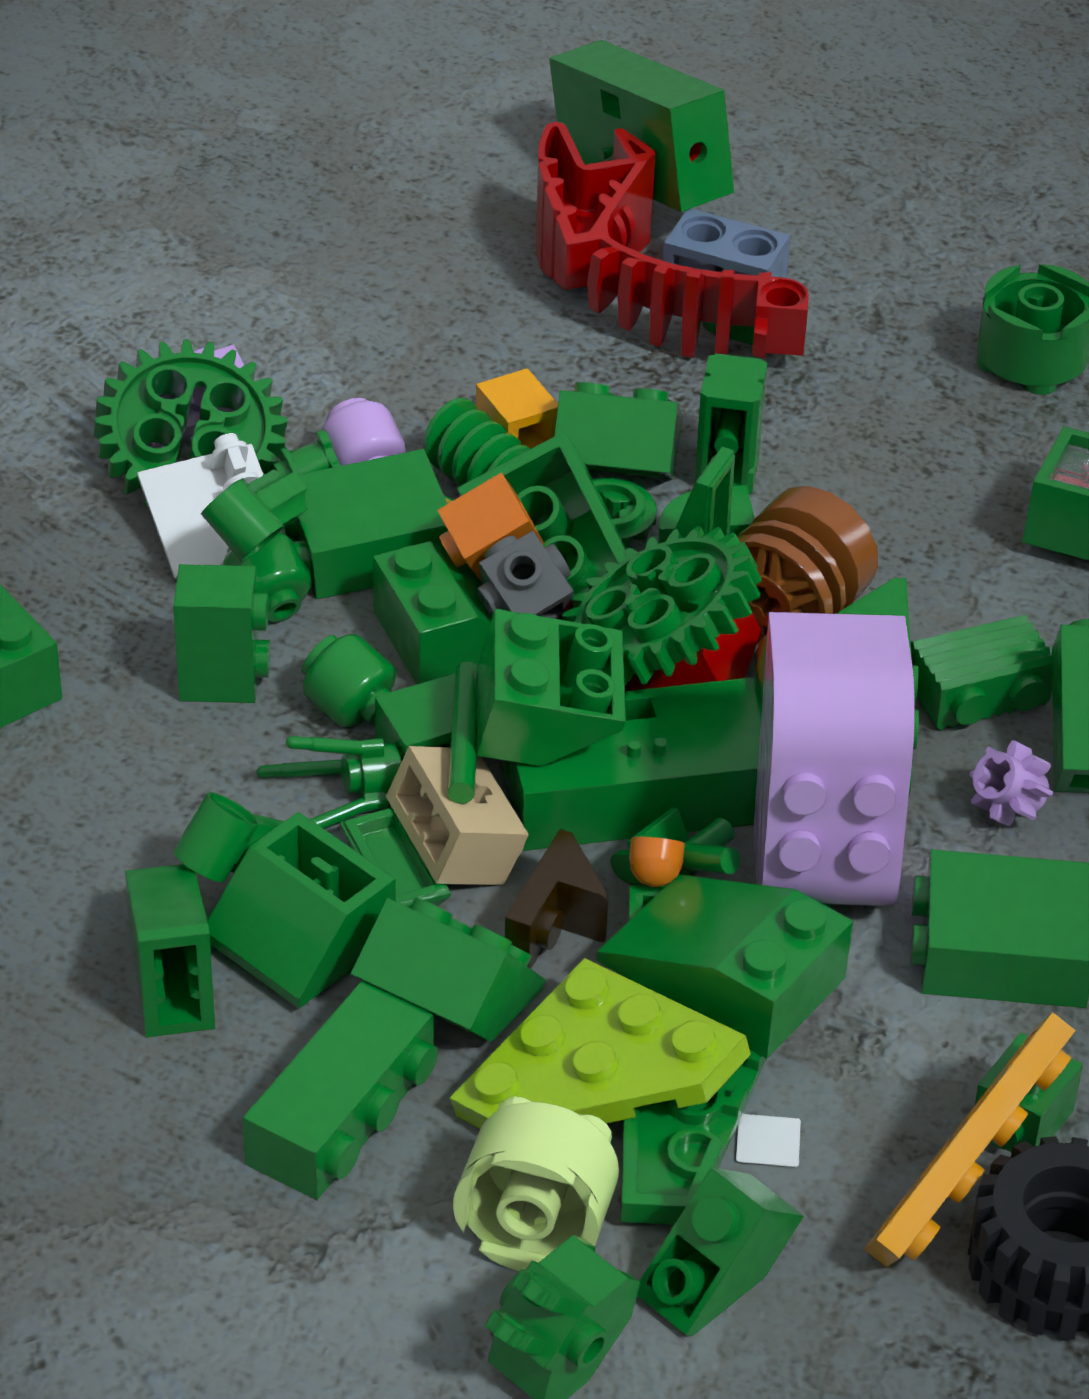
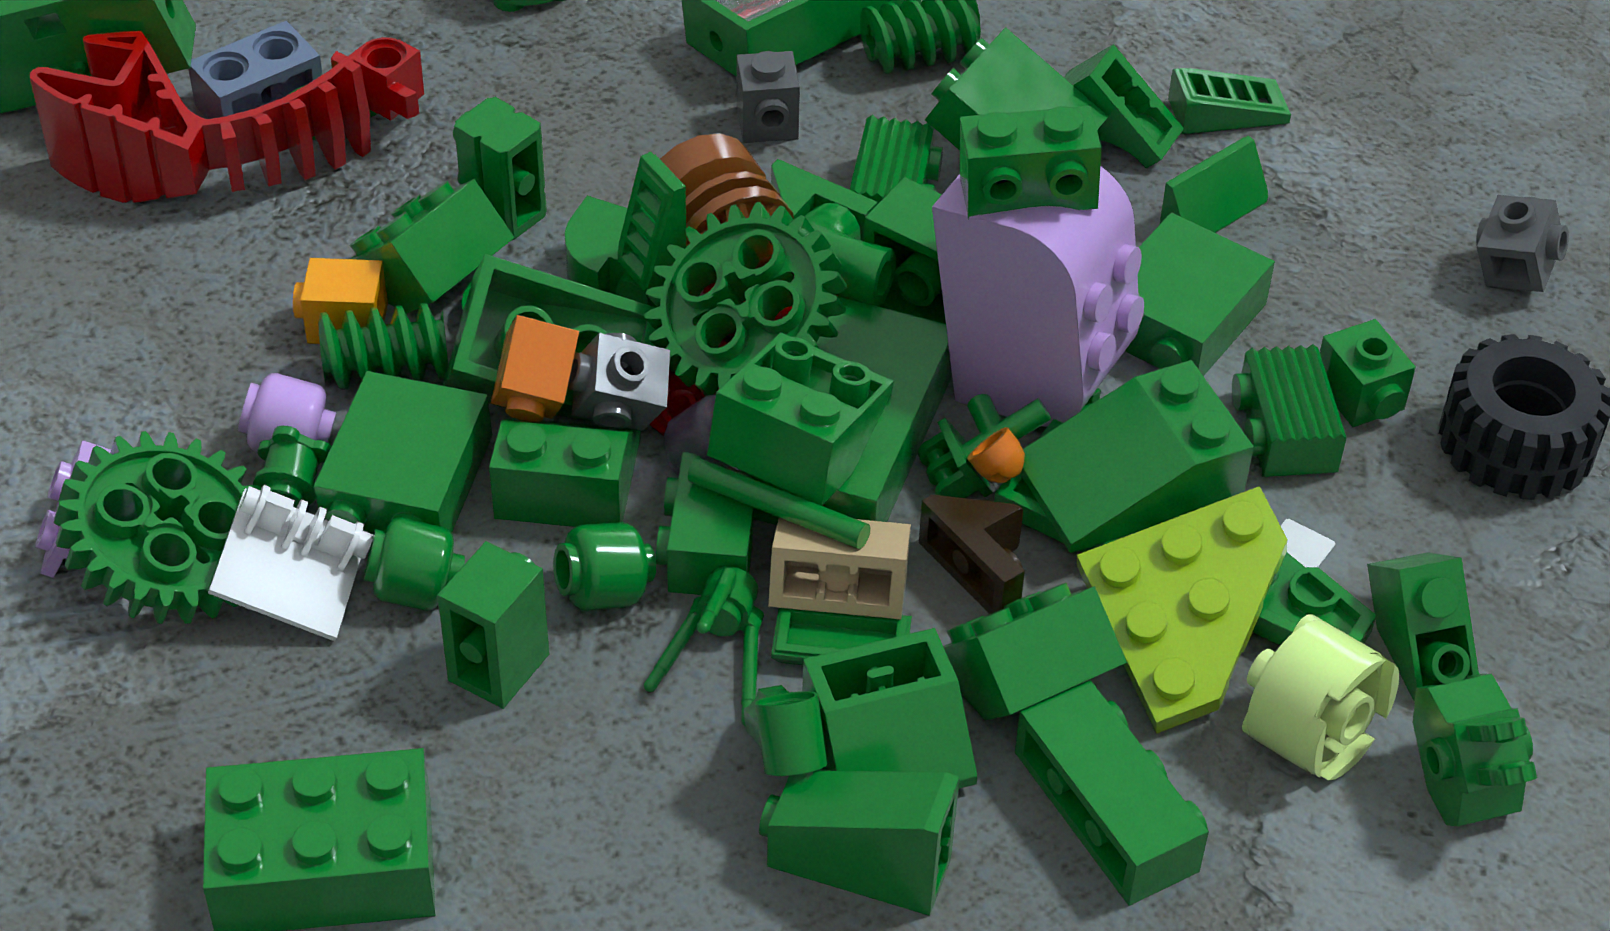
camera: 60 degrees left, 5 degrees up
(256, 512) = (386, 516): green piece -> none
(843, 628) = (1032, 155): none -> green brick
(920, 1058) = (1289, 411): none -> green brick
(954, 1167) = (1431, 414): light orange plate -> none
(1002, 550) = (764, 85): none -> dark grey brick

